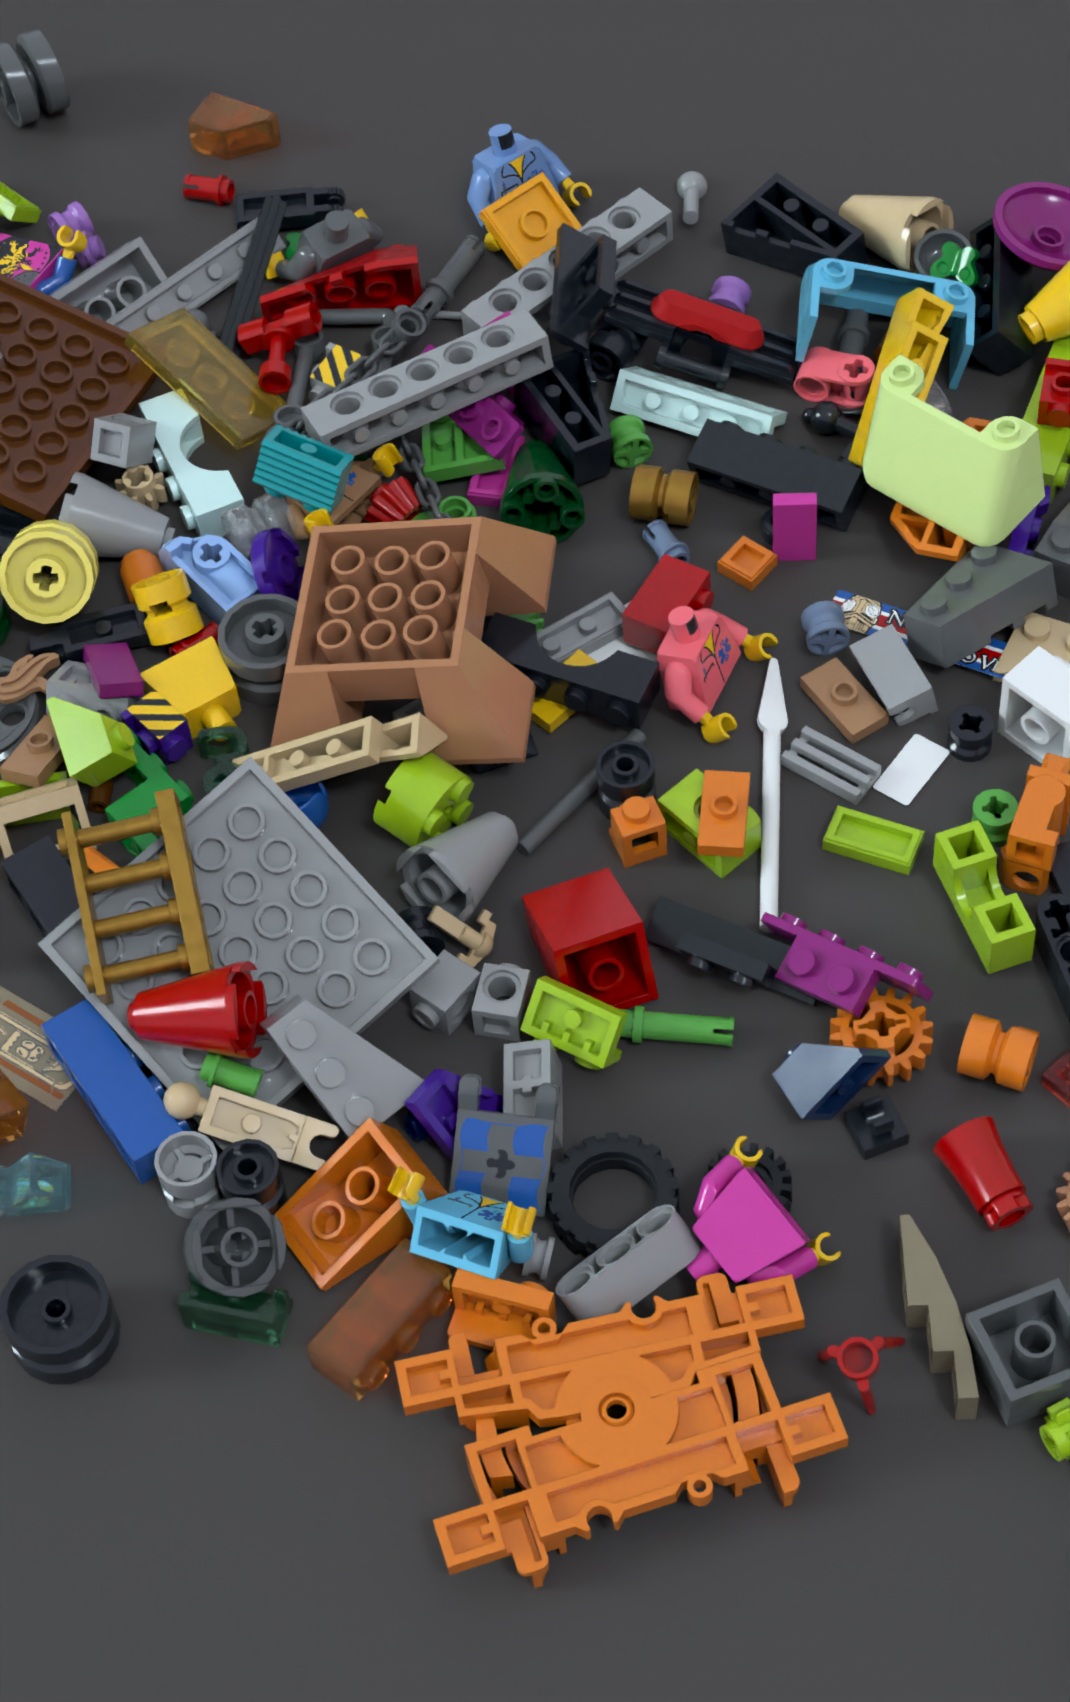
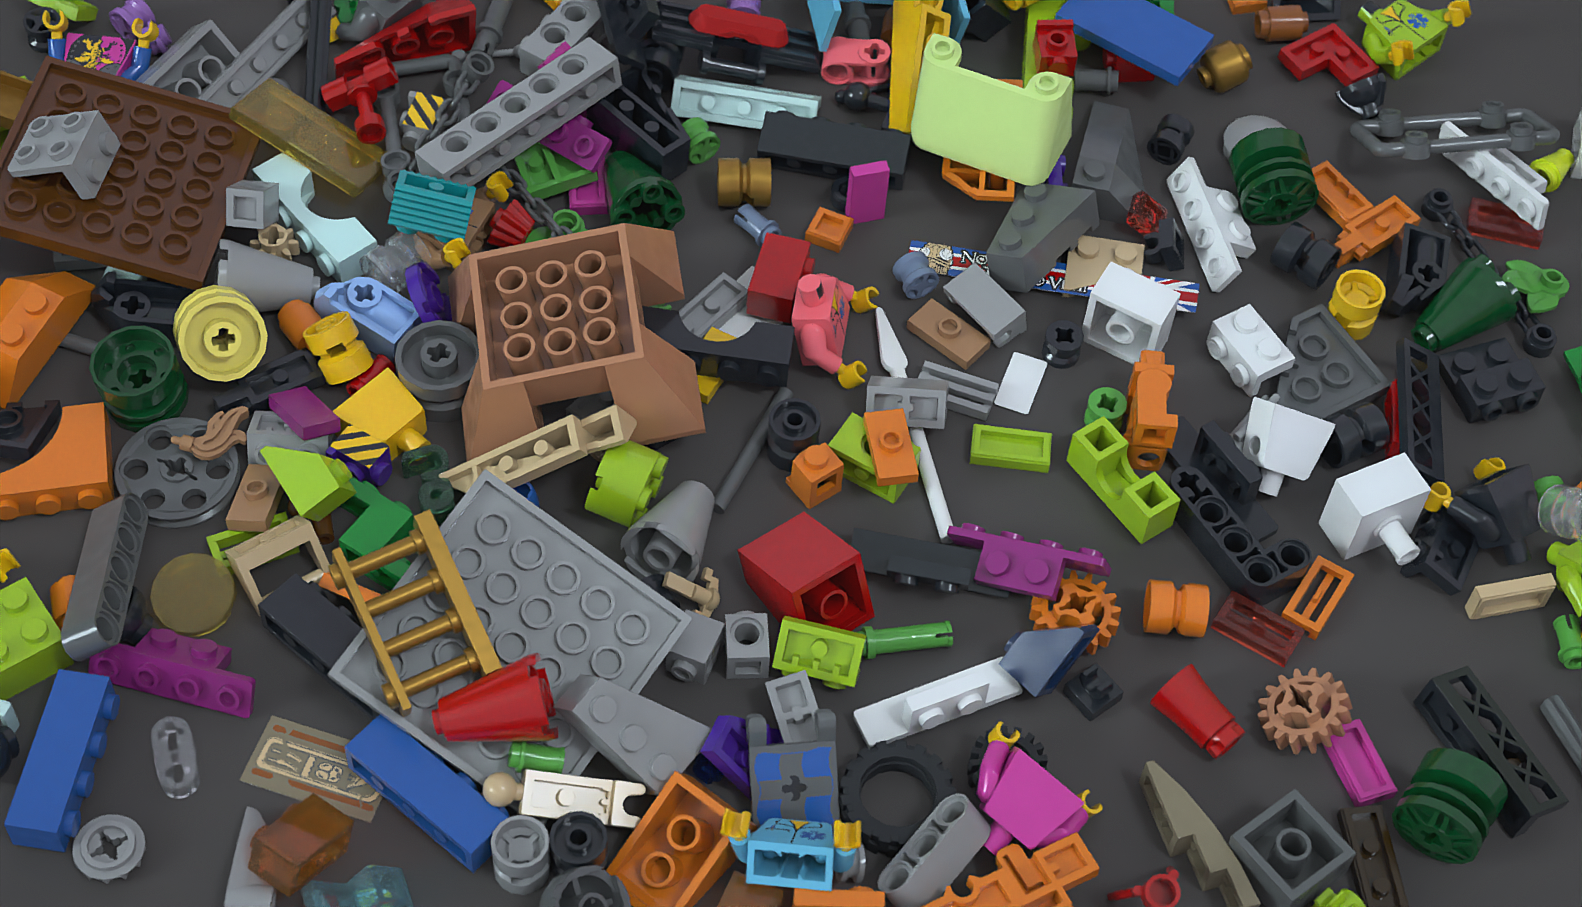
camera: 25 degrees left, 0 degrees up
(692, 1104) = (936, 703): none -> white bracket
(775, 767) = (921, 399): none -> light grey hinge

